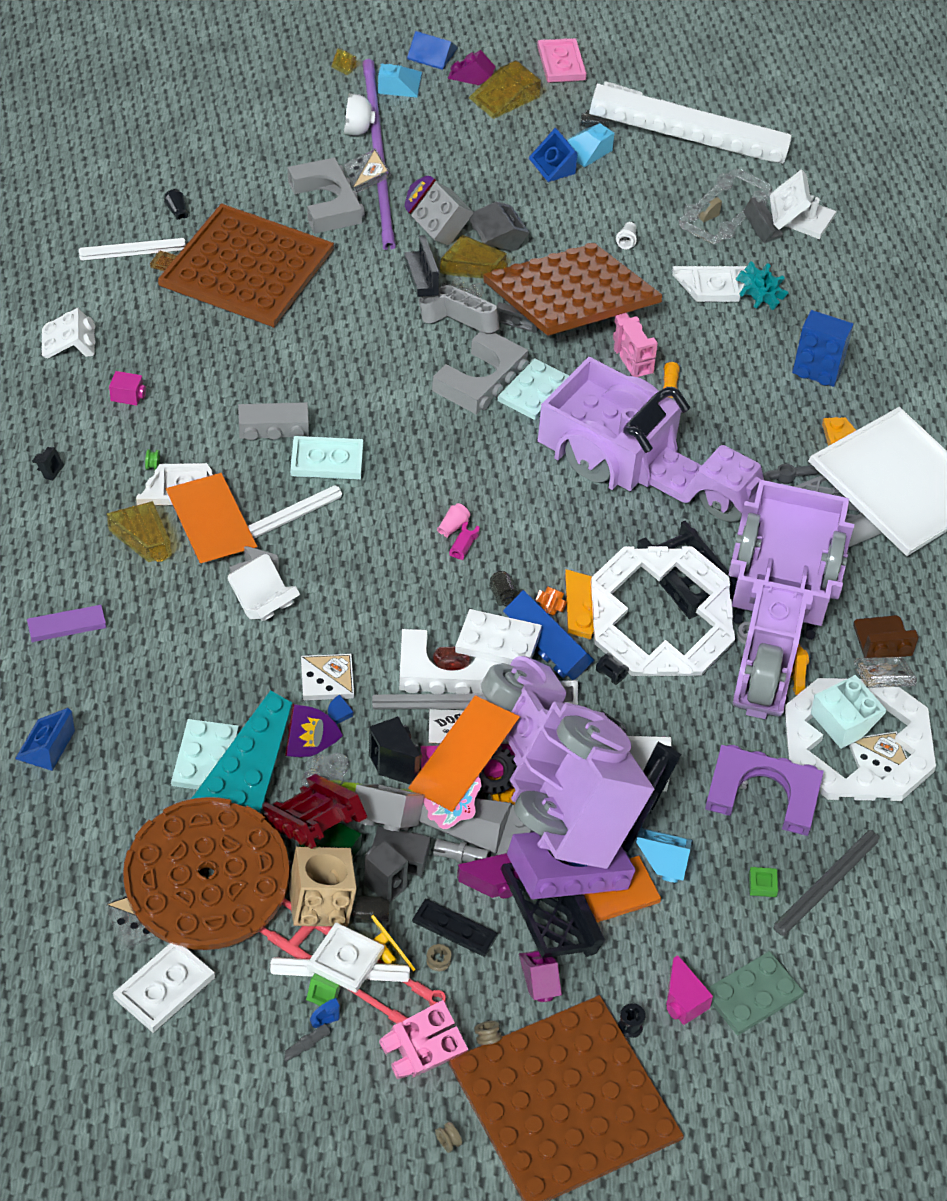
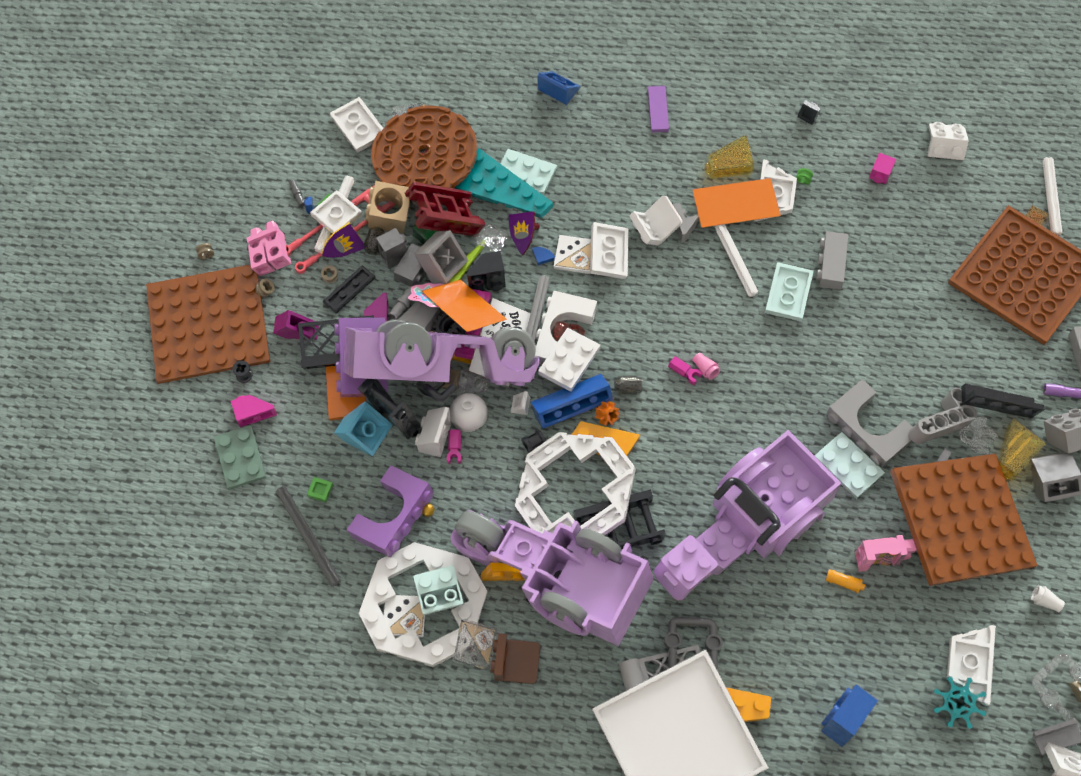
camera: 110 degrees right, 15 degrees up
(317, 635) = (609, 250): none -> white plate

